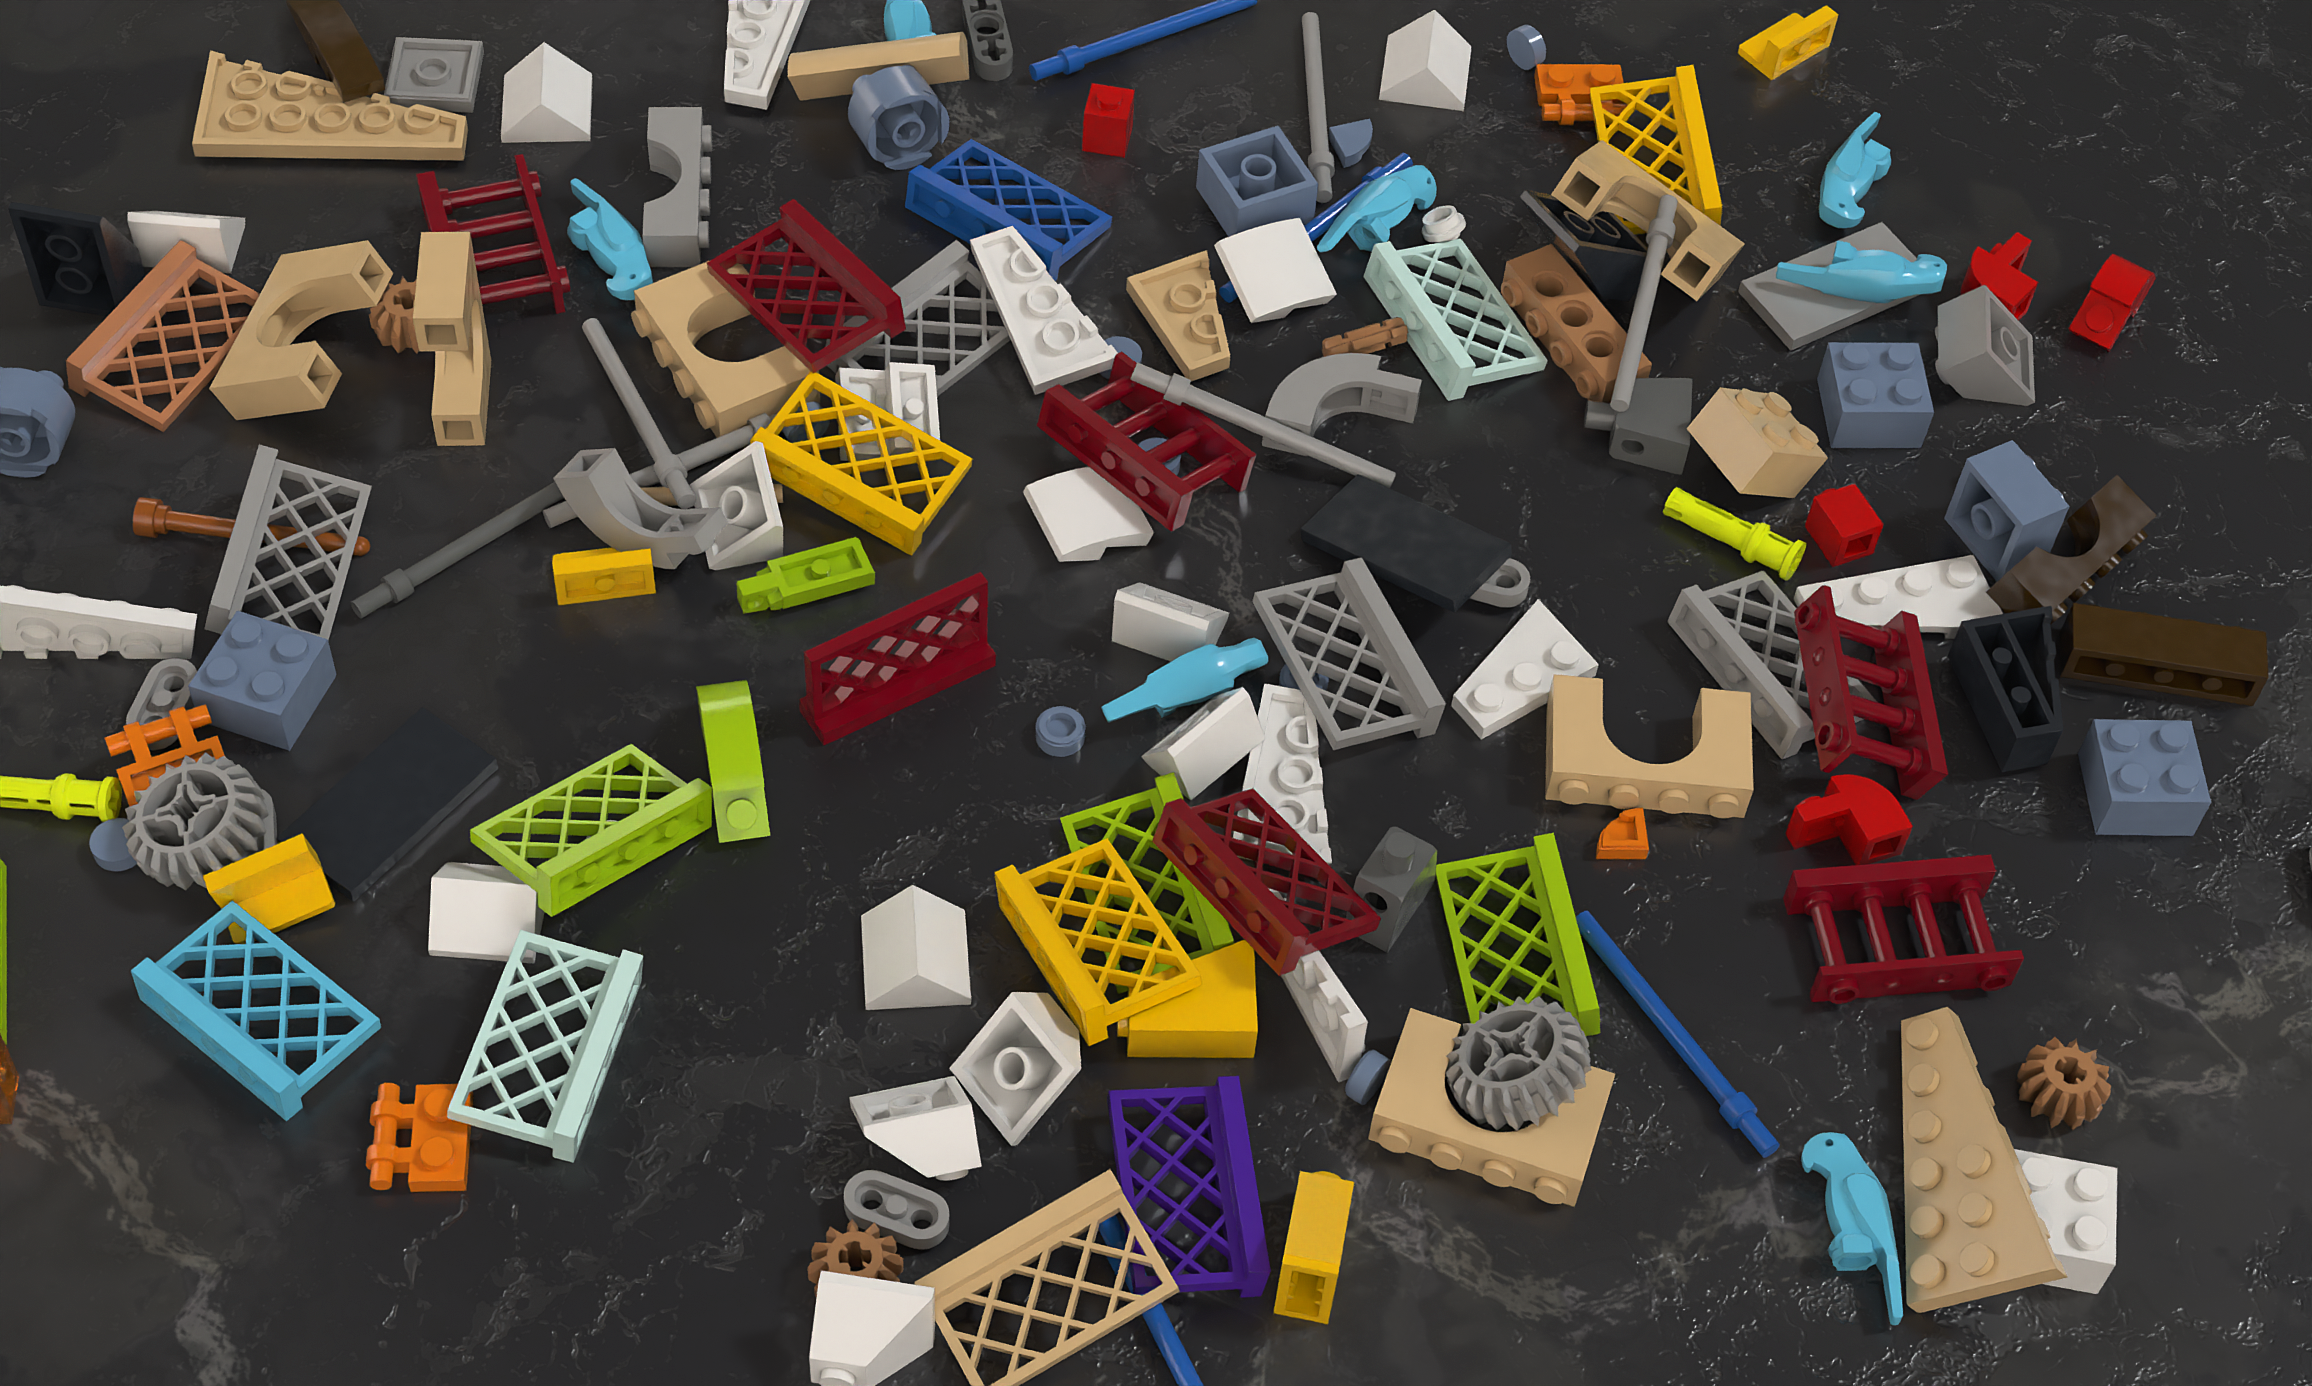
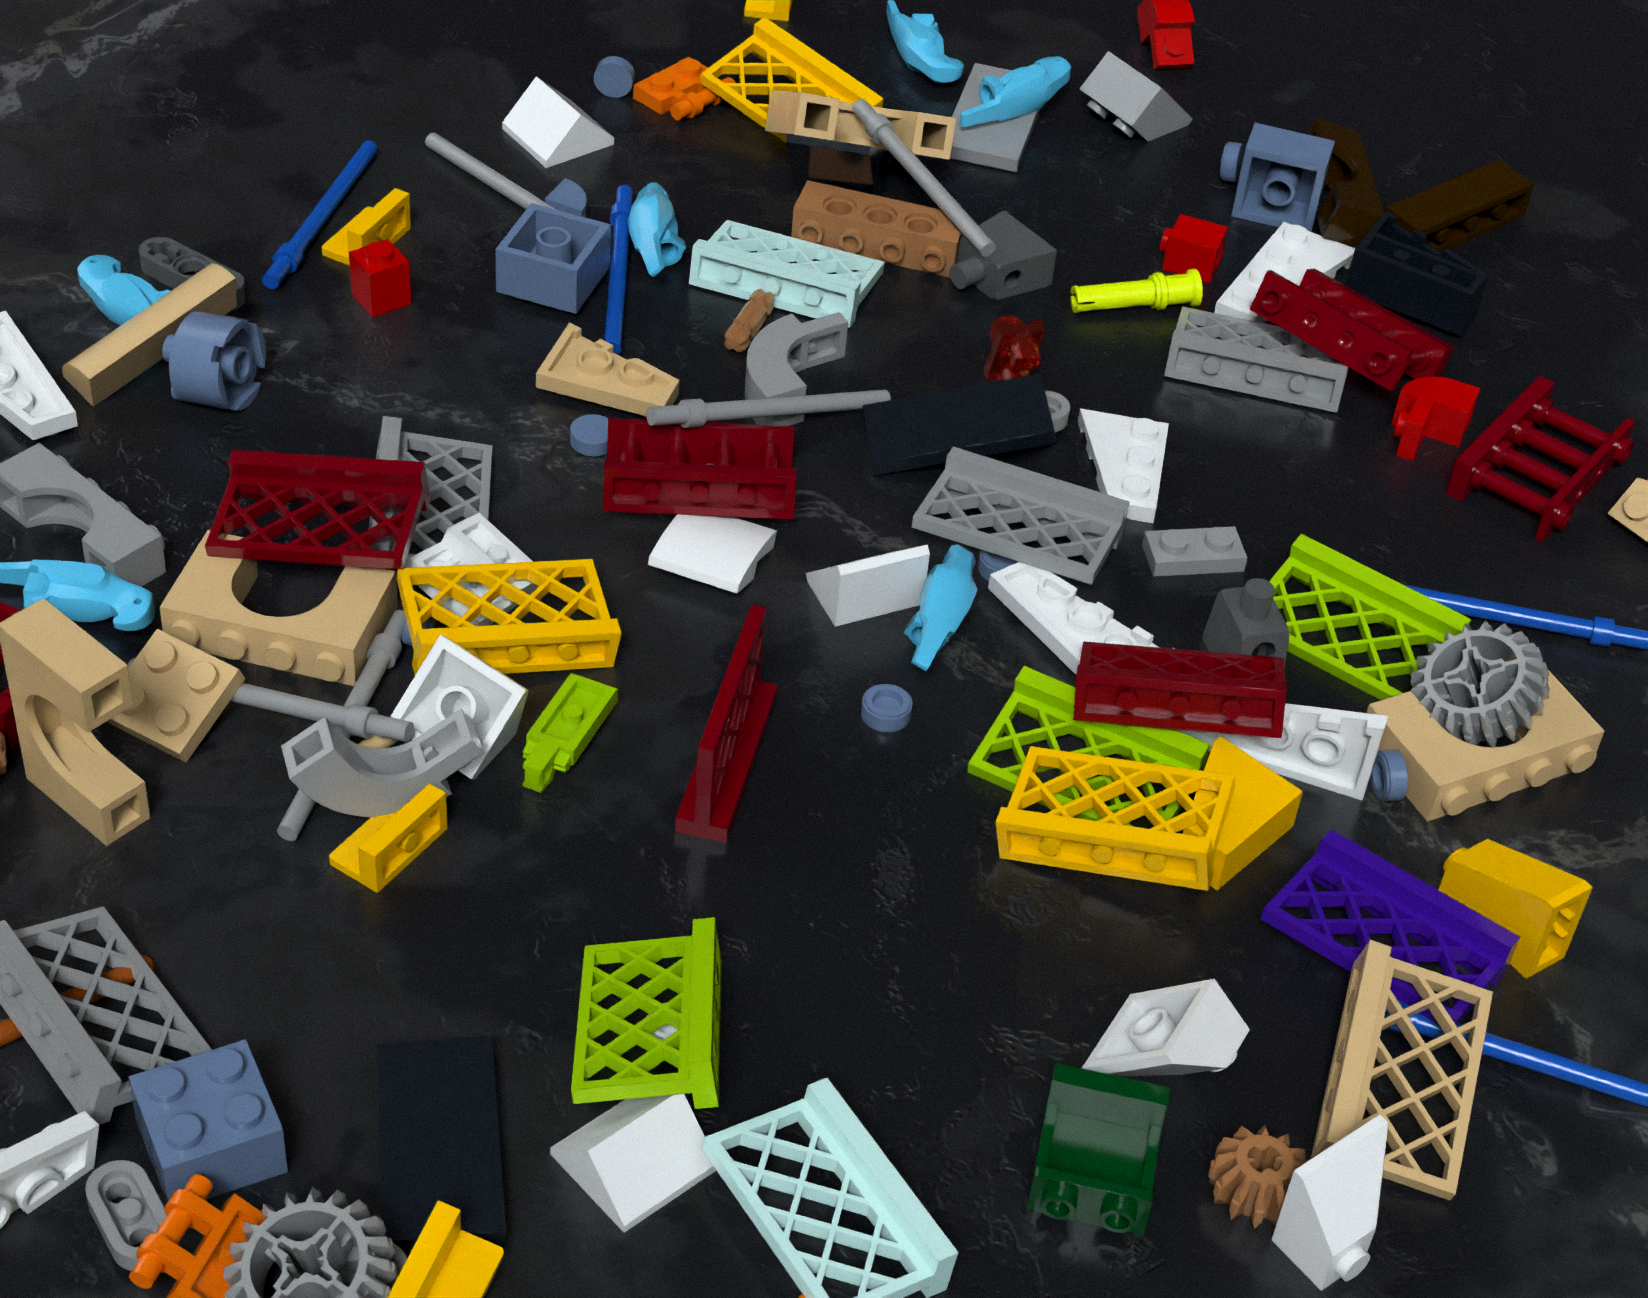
camera: 45 degrees left, 10 degrees down
(401, 583) = (225, 965): dark grey bar -> none
(580, 363) = (176, 695): none -> tan plate
(733, 760) = (695, 873): lime arch -> none
(774, 1161) = (1098, 1149): none -> dark green panel
(900, 1207) = (1221, 1112): light grey plate -> none
(915, 952) = (991, 934): white slope -> none
(968, 216) = (362, 401): blue fence -> none
(1020, 1062) = (1179, 937): white slope -> none
(1040, 318) = (521, 441): white wing -> none
(1162, 74) = (384, 221): none -> yellow panel
(1208, 742) = (1002, 632): white slope -> none
(1275, 270) = (636, 306): white slope -> none
(1442, 224) = (706, 216): white plate -> none
(1475, 786) = (1194, 551): none -> light grey plate
(1530, 510) = (1013, 348): none -> clear red hips
(1591, 770) = (1250, 487): tan arch -> none
(1624, 837) = (1319, 518): orange tile -> none
(1757, 442) = (1094, 222): tan brick -> none
(1875, 395) = (1112, 161): sand blue brick -> none
(2002, 274) = (1086, 53): red brick -> none
(2144, 777) = (1542, 284): sand blue brick -> none

